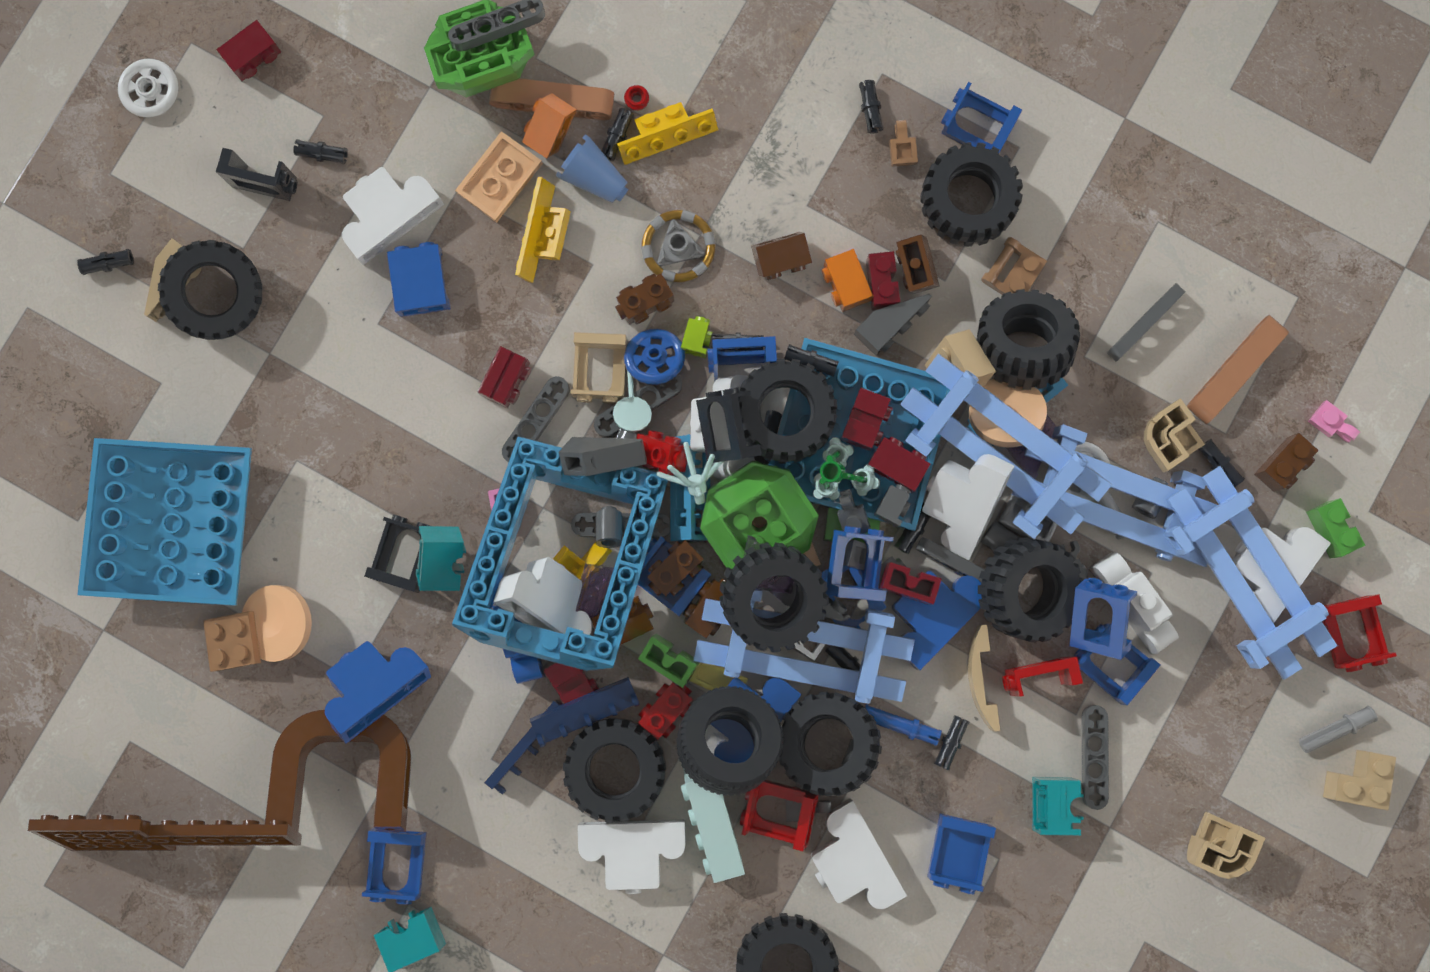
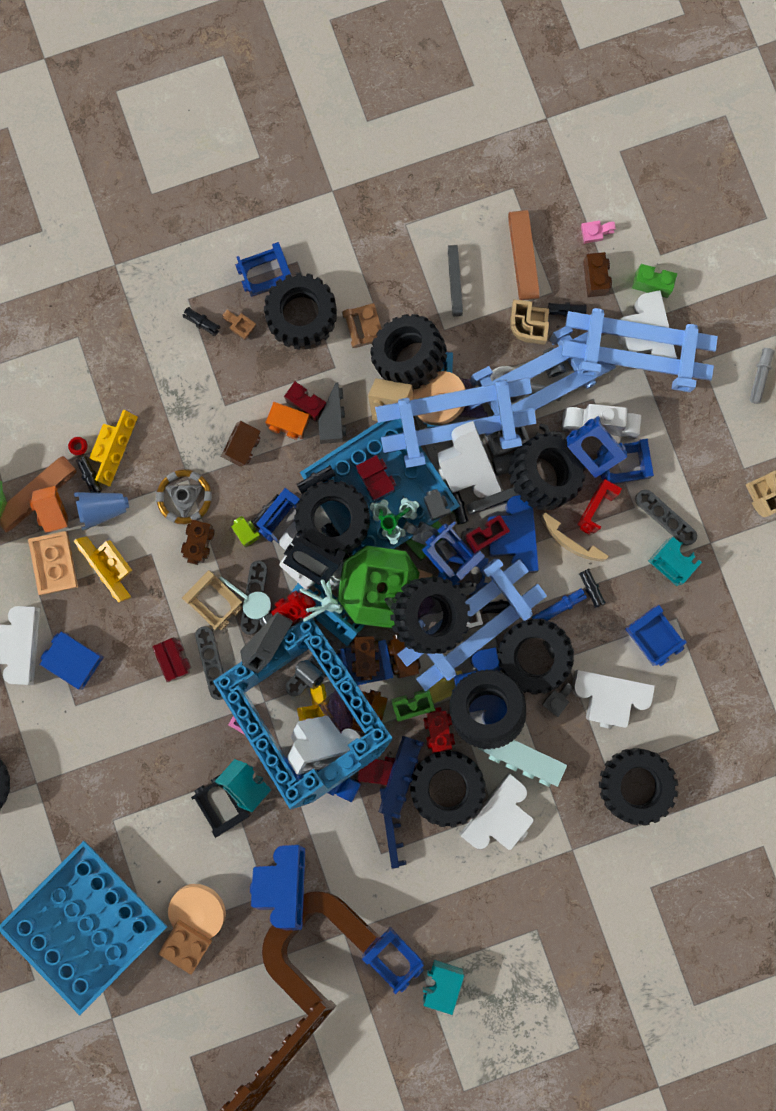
camera: 55 degrees left, 0 degrees up
(652, 375) = (245, 575): blue plate -> none
(756, 824) = (541, 736): red panel -> none
(899, 464) = (416, 482): dark red brick -> none
(917, 264) = (313, 374): reddish brown brick -> none
(1377, 651) = (738, 317): red panel -> none

